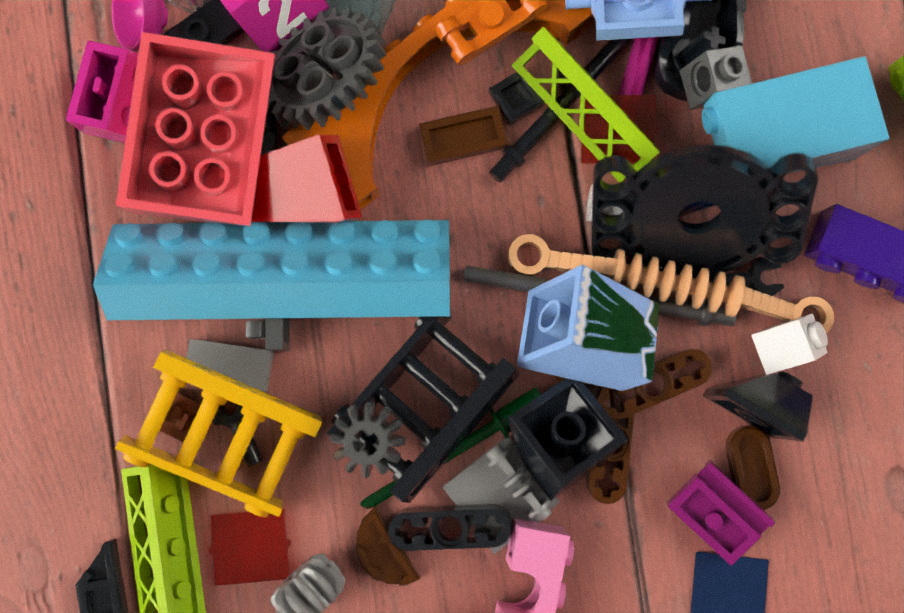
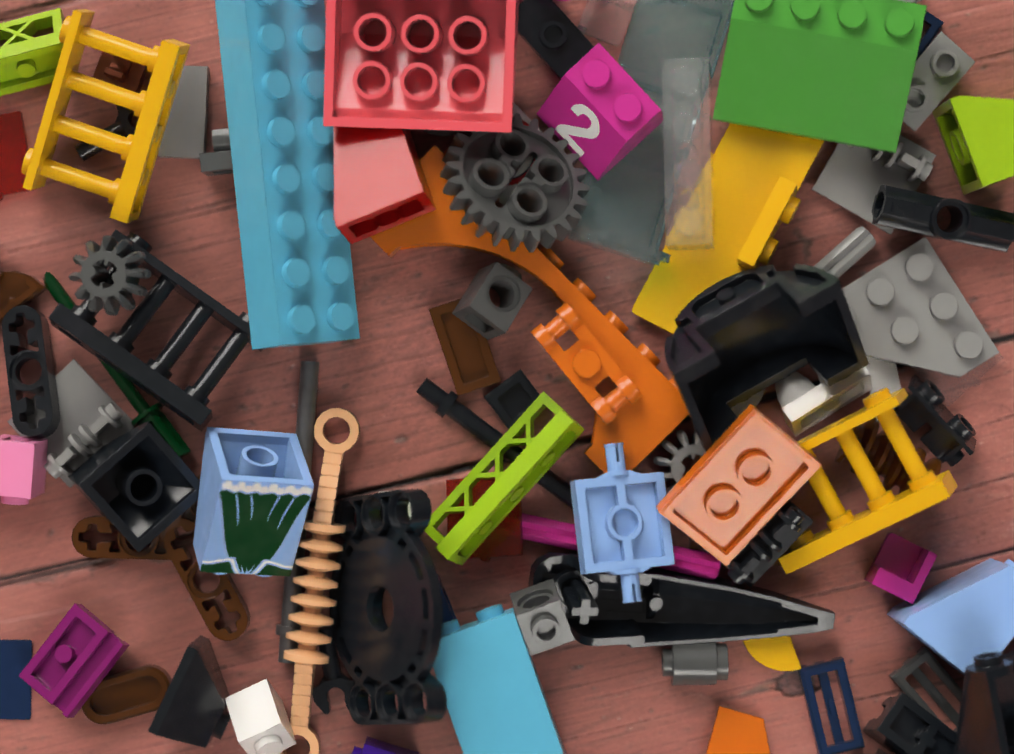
camera: 80 degrees right, 5 degrees up
(426, 101) = (478, 310): none -> dark grey brick

